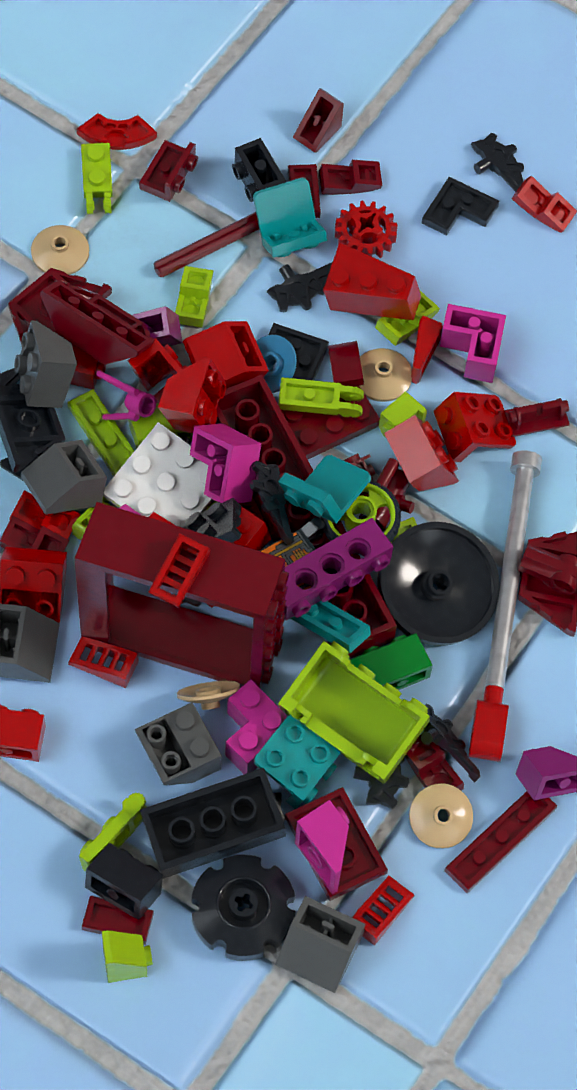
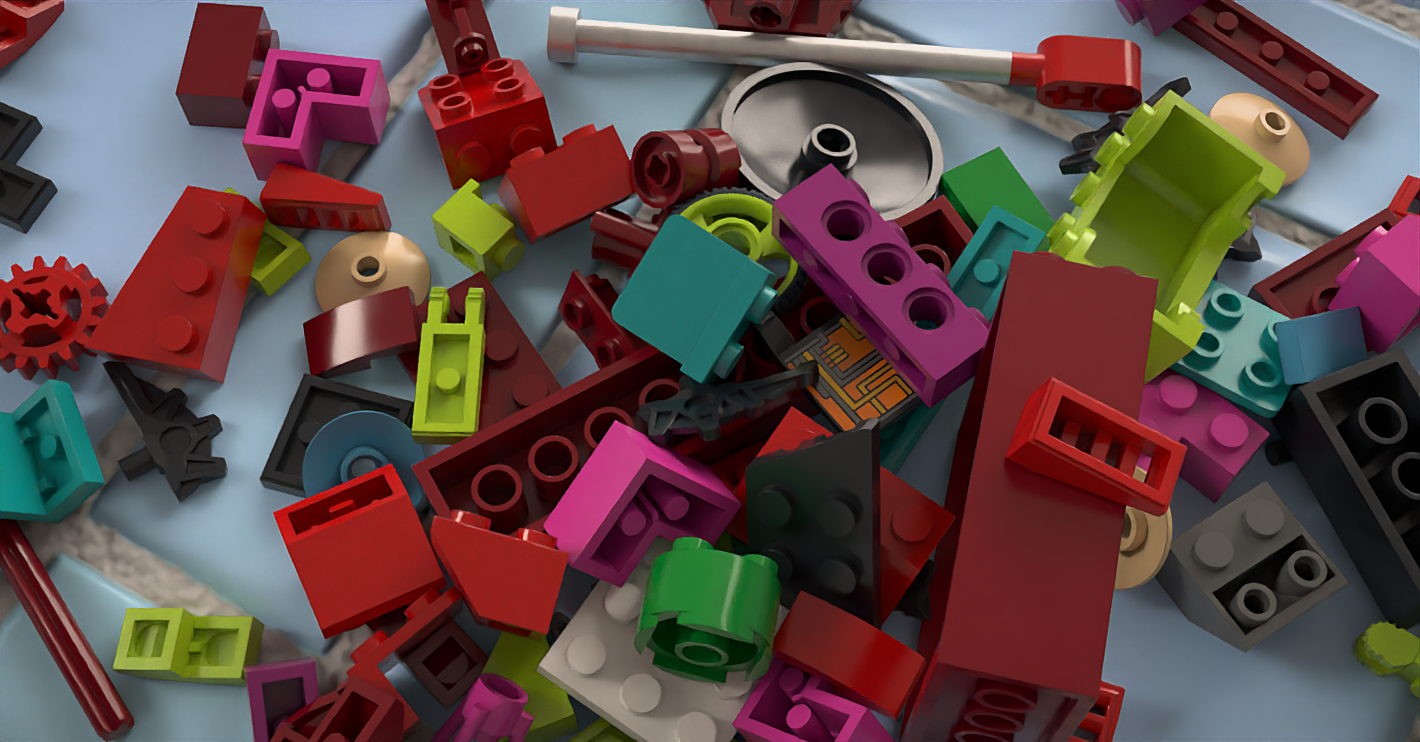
camera: 90 degrees left, 0 degrees up
(166, 482) = (709, 612): none -> green brick
(290, 791) = (1320, 344): none -> dark azure tile
(418, 503) = (683, 163): none -> dark red wheel
(516, 300) = (224, 64): none -> dark red brick

